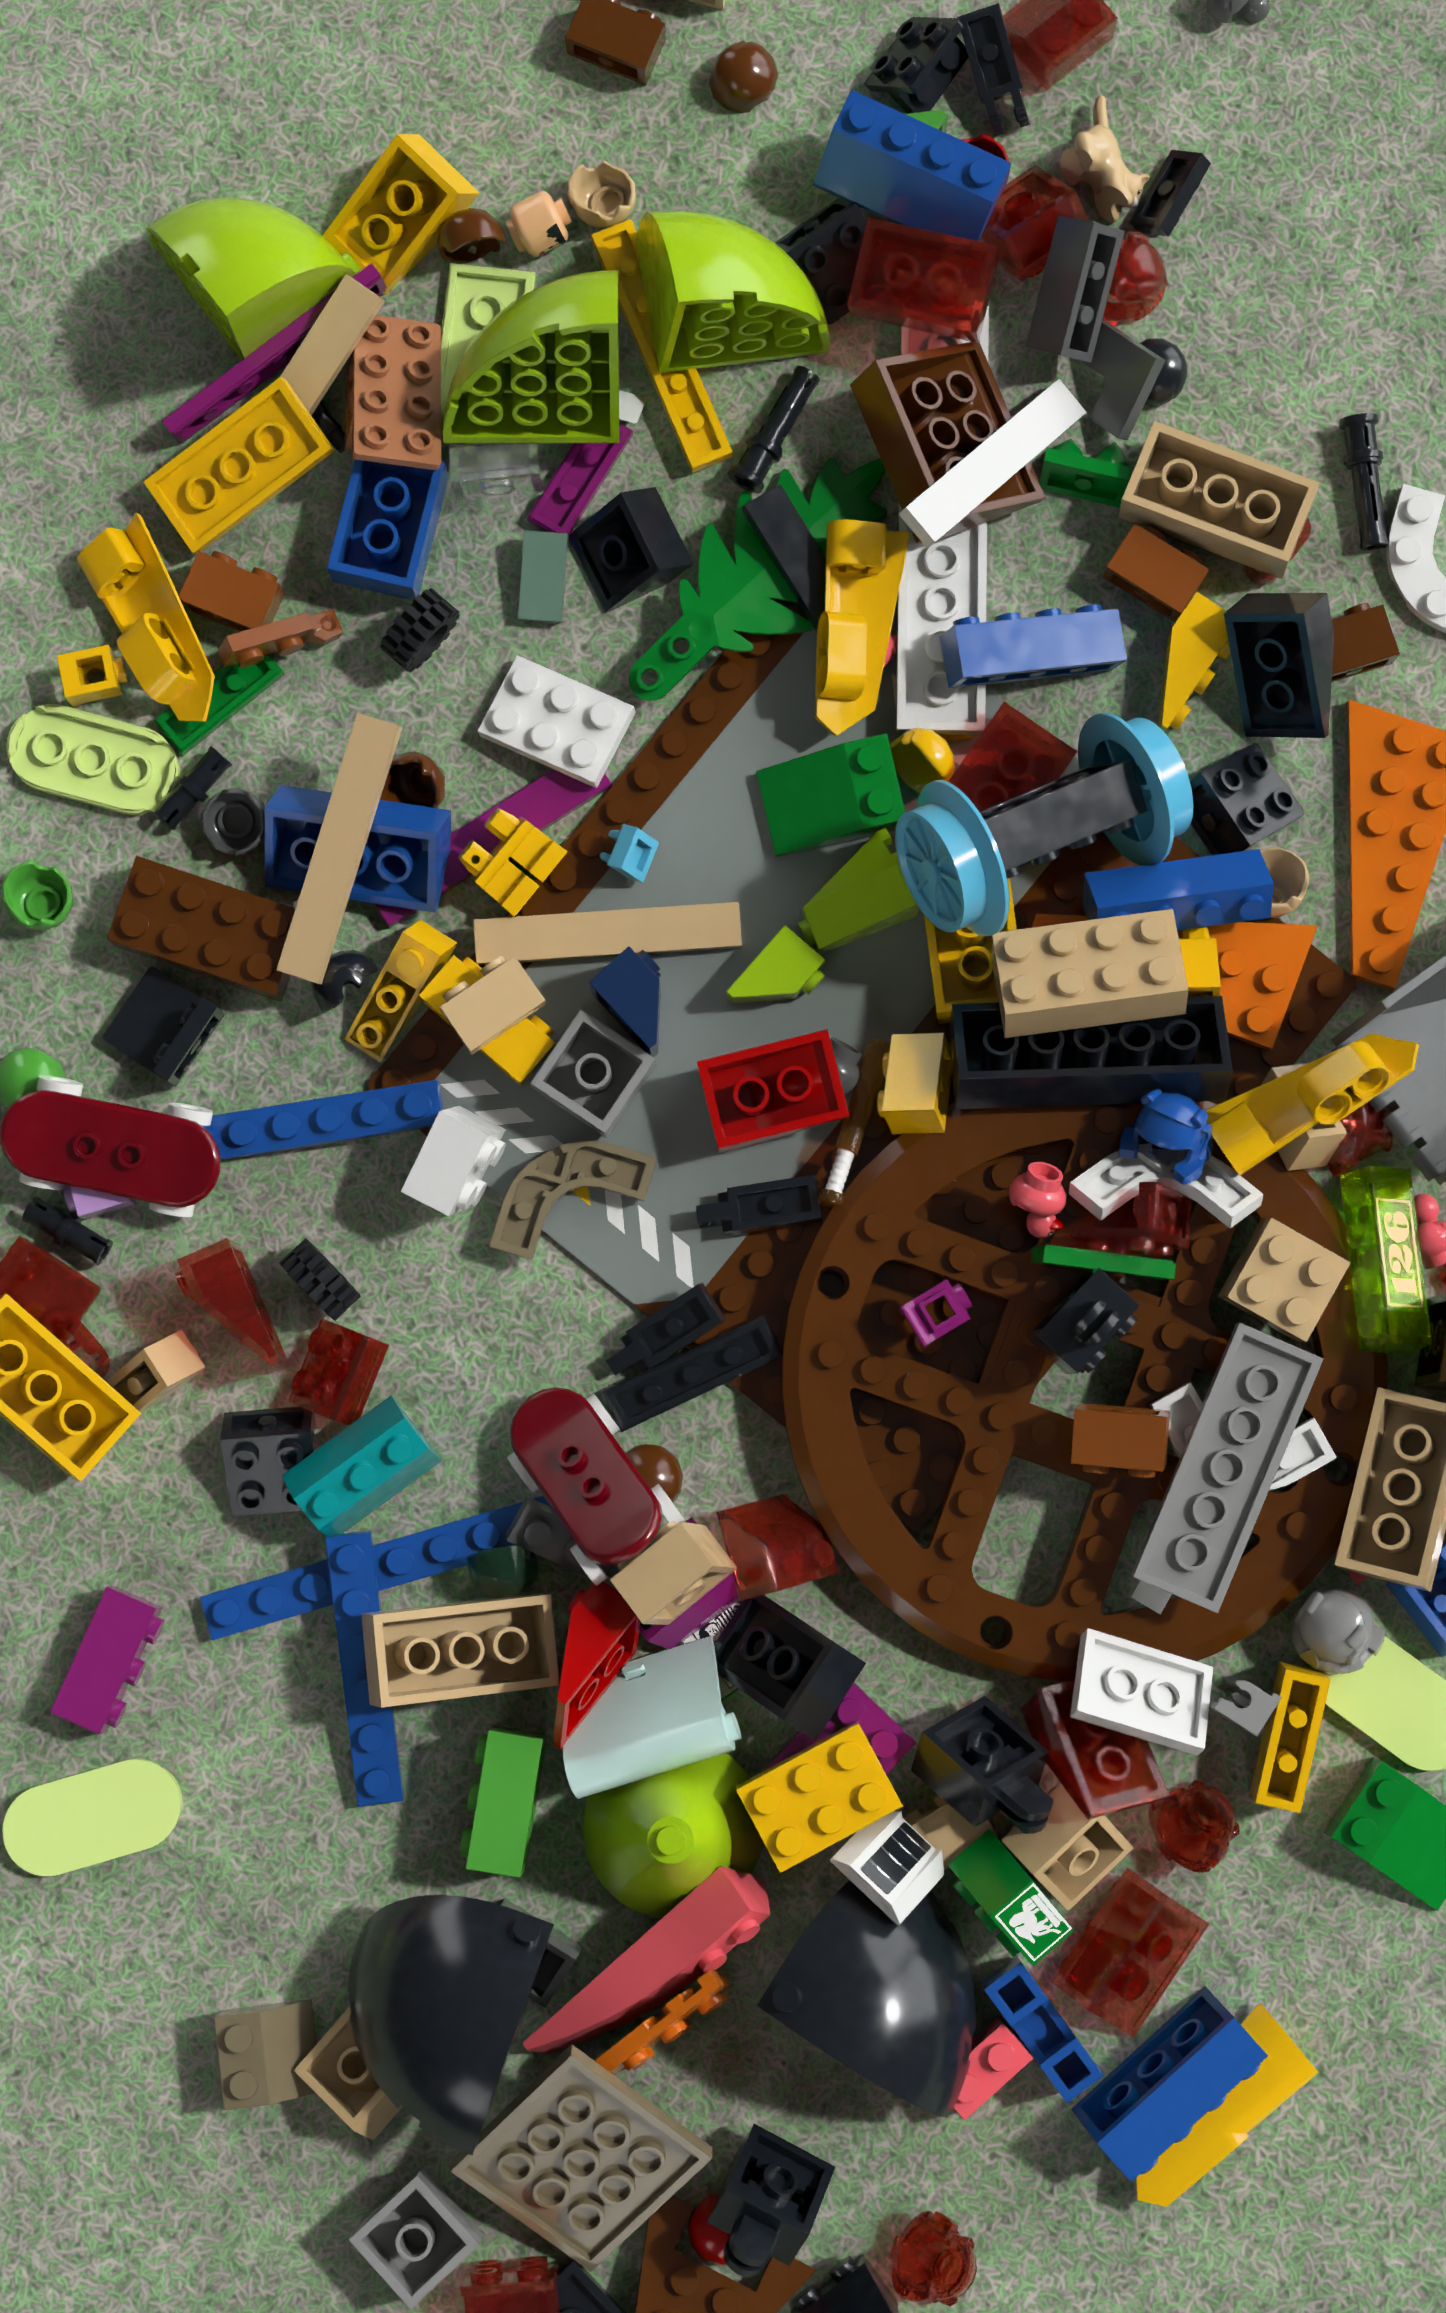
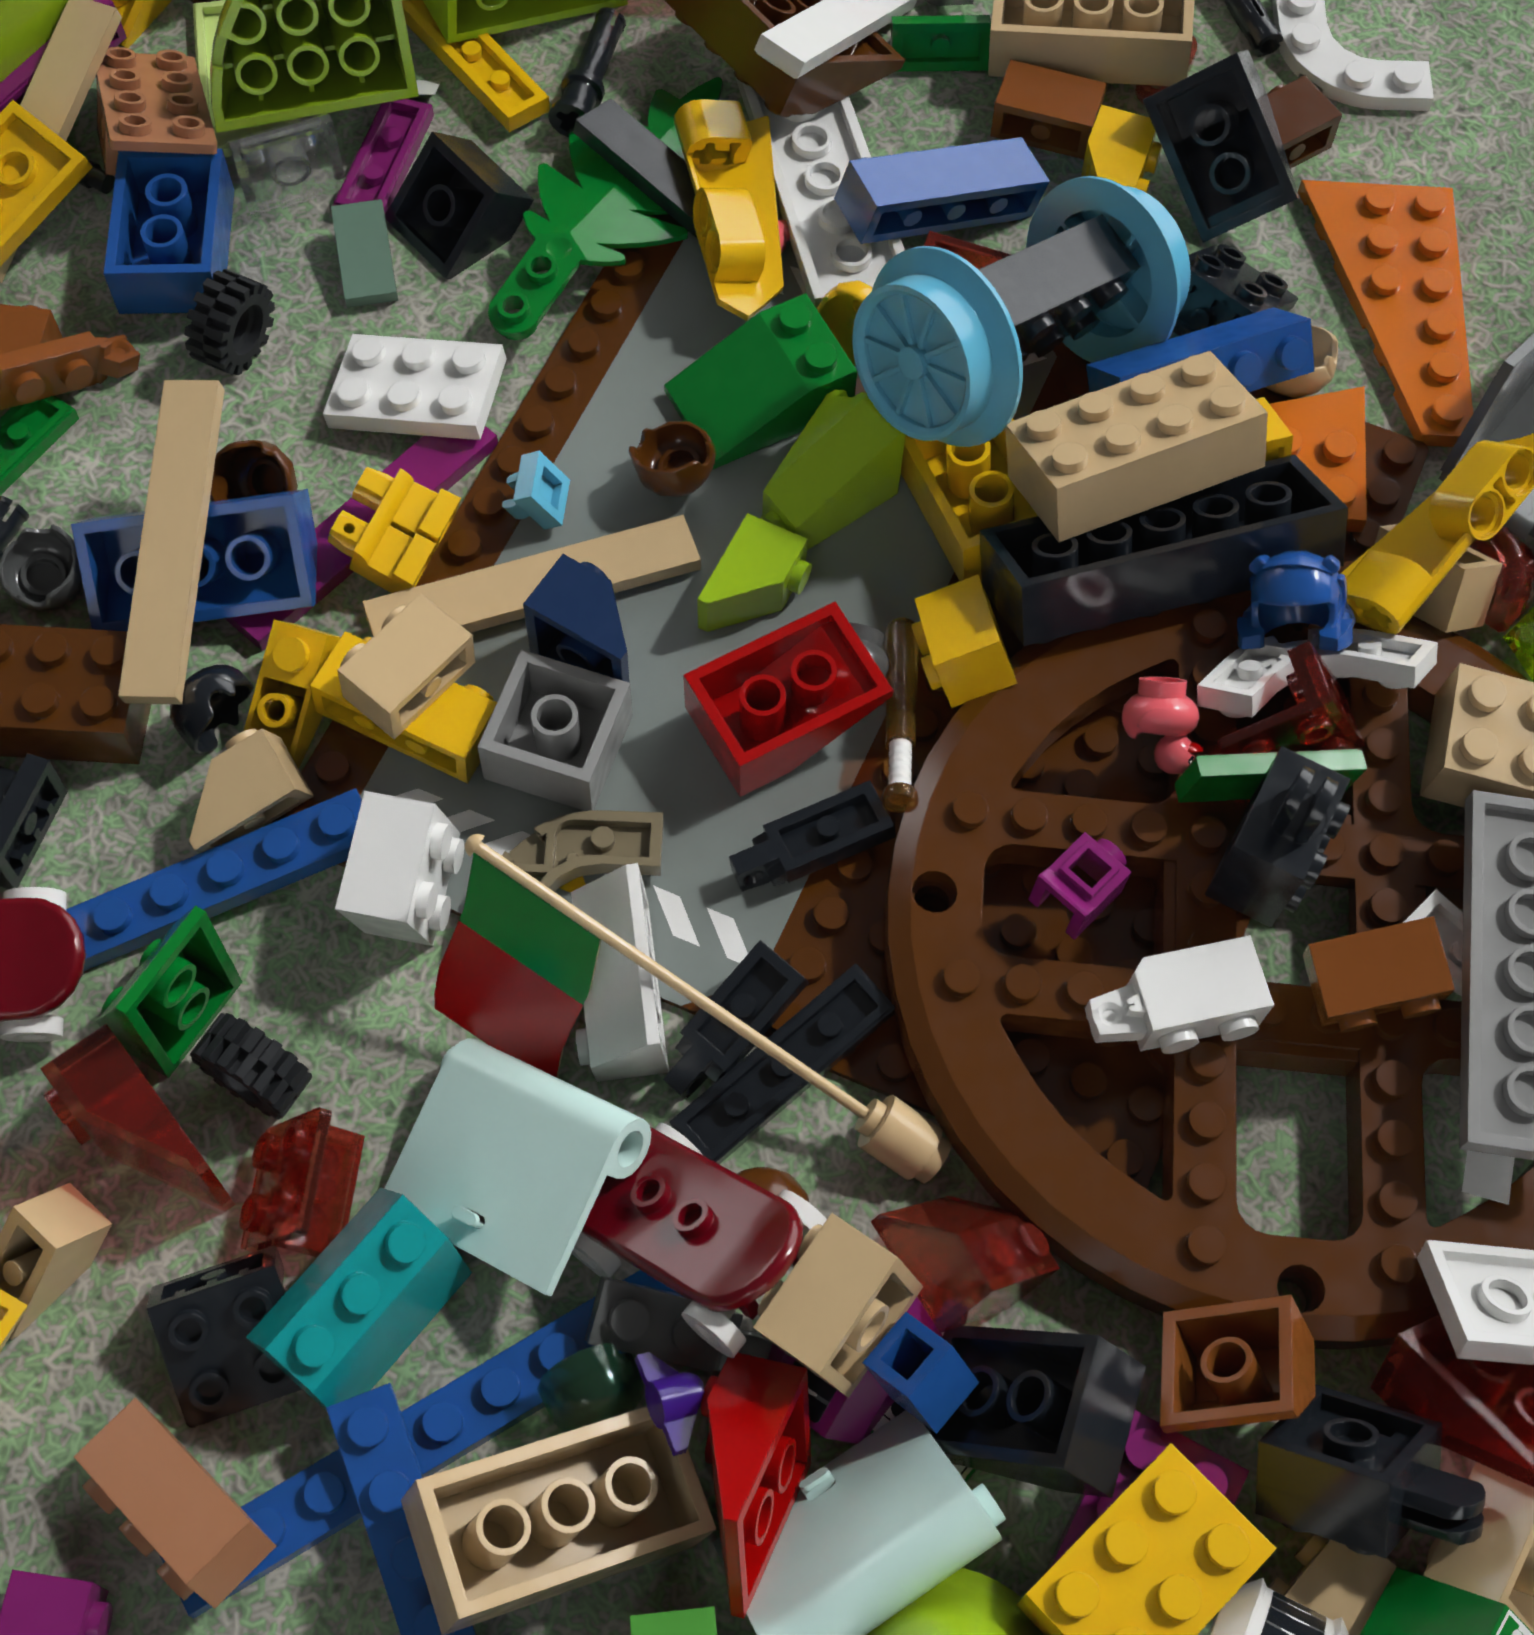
camera: 20 degrees left, 20 degrees down
(214, 1571) = (172, 1506): none -> nougat brick
(270, 1208) = (172, 993): none -> green slope
(358, 1059) = (247, 789): none -> tan slope
(489, 1393) = (519, 1155): none -> light aqua door
(531, 1274) = (530, 959): none -> flag
(550, 1599) = (671, 1399): none -> dark purple piece
(590, 1282) = (624, 1004): none -> white slope
(718, 1624) = (921, 1372): none -> blue brick
(743, 850) = (673, 458): none -> reddish brown hair
(929, 1677) = (1235, 1364): none -> dark orange slope
(978, 1417) = (1186, 998): none -> white hinge

